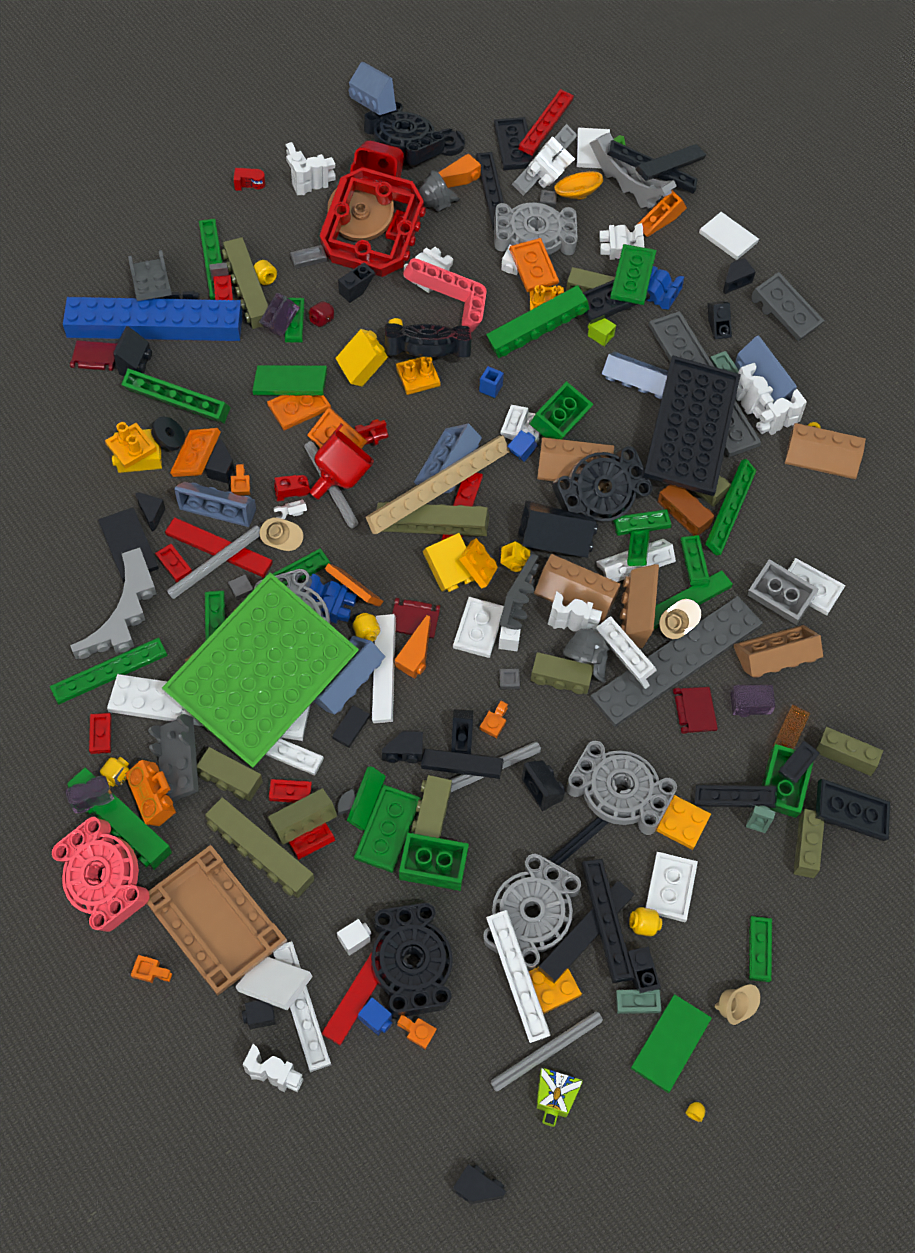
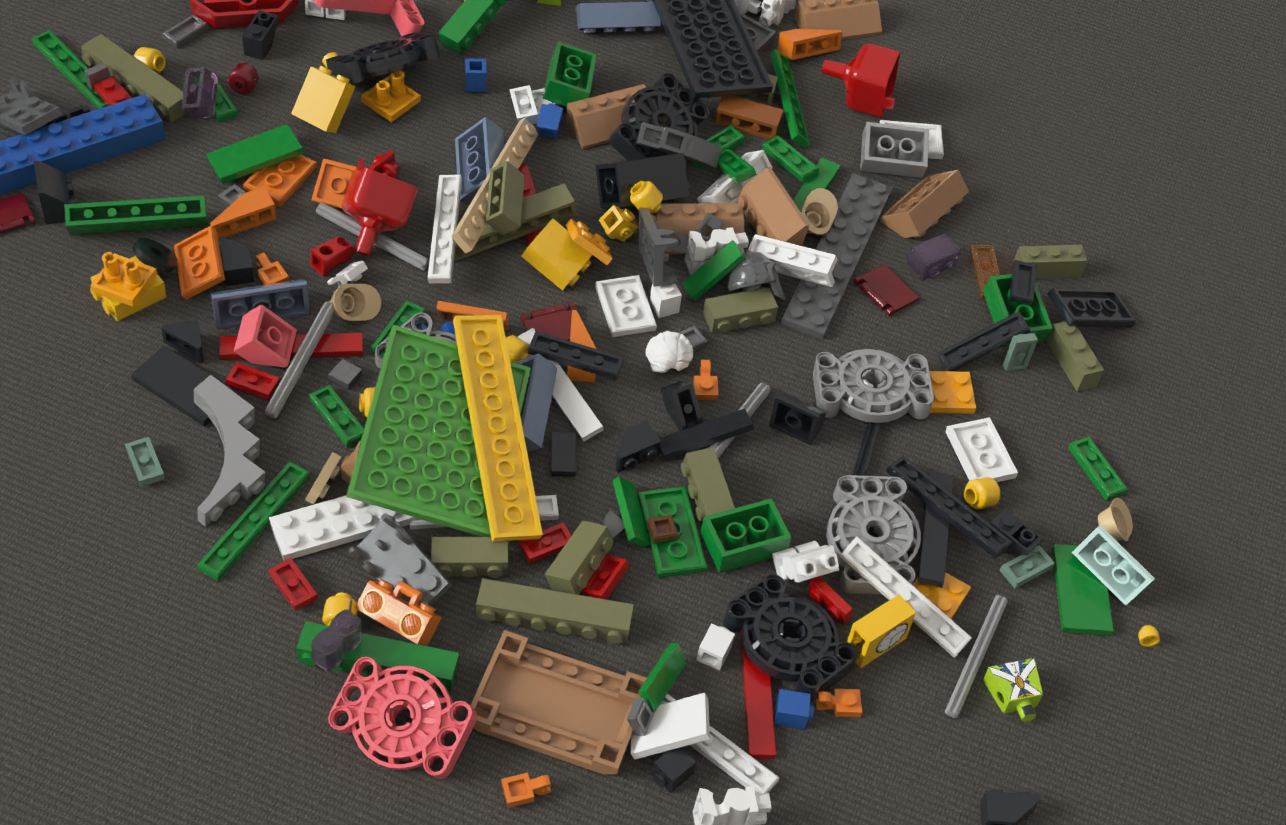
camera: 35 degrees left, 10 degrees down
(65, 591) = (144, 461): none -> sand green plate
(165, 667) = (320, 487): none -> tan plate
(199, 535) = (265, 338): none -> coral slope
(251, 426) = (245, 213): none -> orange slope
(255, 409) = (230, 195): none -> flat silver tile
(256, 963) = (640, 716): none -> flat silver tile
(295, 941) = (662, 676): none -> green tile
(300, 686) = (497, 428): none -> yellow plate
(378, 824) = (662, 529): none -> reddish brown tile
(386, 493) = (444, 225): none -> white tile
(405, 654) = (576, 355): none -> black tile
(431, 501) = (505, 198): none -> olive brick
(460, 938) = (830, 600): none -> red plate
(462, 913) = (805, 562): none -> white hips
(479, 992) = (881, 629): none -> yellow brick
(481, 682) = (669, 351): none -> white hair
(543, 547) = (646, 196): none -> yellow head
(559, 631) = (714, 270): none -> green tile
(583, 589) = (708, 219): none -> dark grey piece
(602, 512) = (675, 142): none -> dark grey slope
(705, 1039) = (1113, 565): none -> light aqua slope
(782, 463) = (808, 42): none -> orange slope
(804, 519) = (868, 78): none -> red piece

